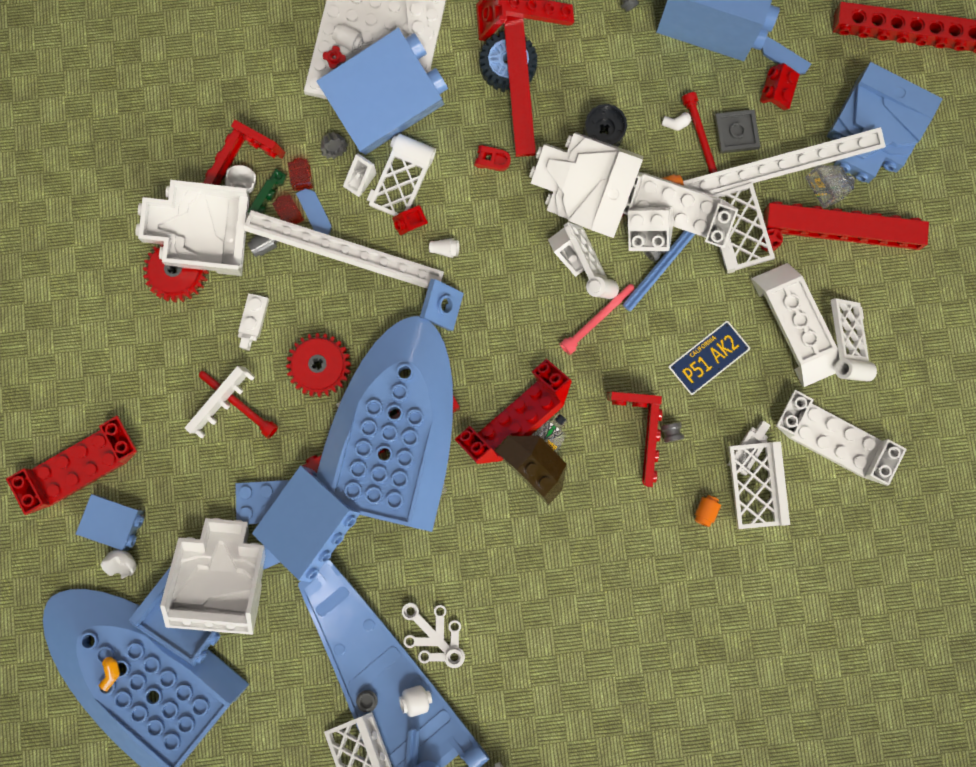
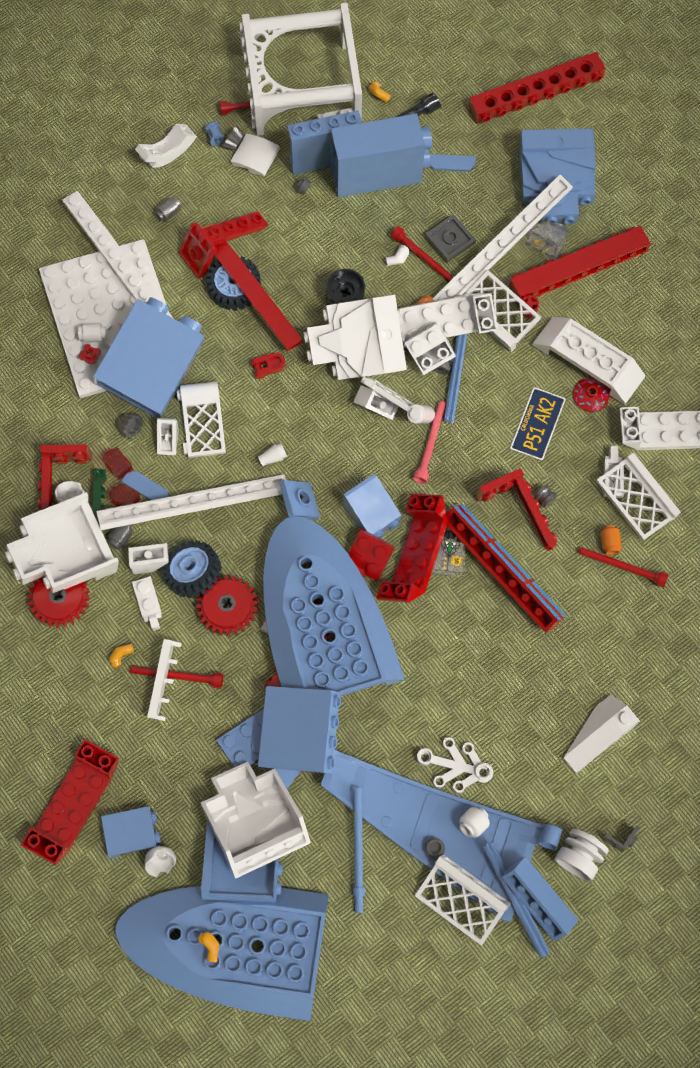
camera: 30 degrees left, 10 degrees down
(197, 352) = (118, 653): none -> light orange arm
(271, 279) = (148, 558): none -> white slope
(278, 695) = (358, 890): none -> medium blue bar
(291, 314) = (192, 569): none -> wheel
(409, 220) = (230, 450): red bracket -> none
(474, 394) = (371, 554): none -> red plate
(502, 351) = (372, 507): none -> slope
(535, 464) = (453, 580): dark brown wedge -> none
(588, 684) = (603, 728): none -> white wedge
(590, 480) = (504, 568): none -> red brick
(731, 574) = (659, 578): none -> red piece
(770, 365) = (587, 401): none -> red dish
(780, 86) = (462, 186): red bracket -> none
(851, 365) = (652, 363): white piece -> none

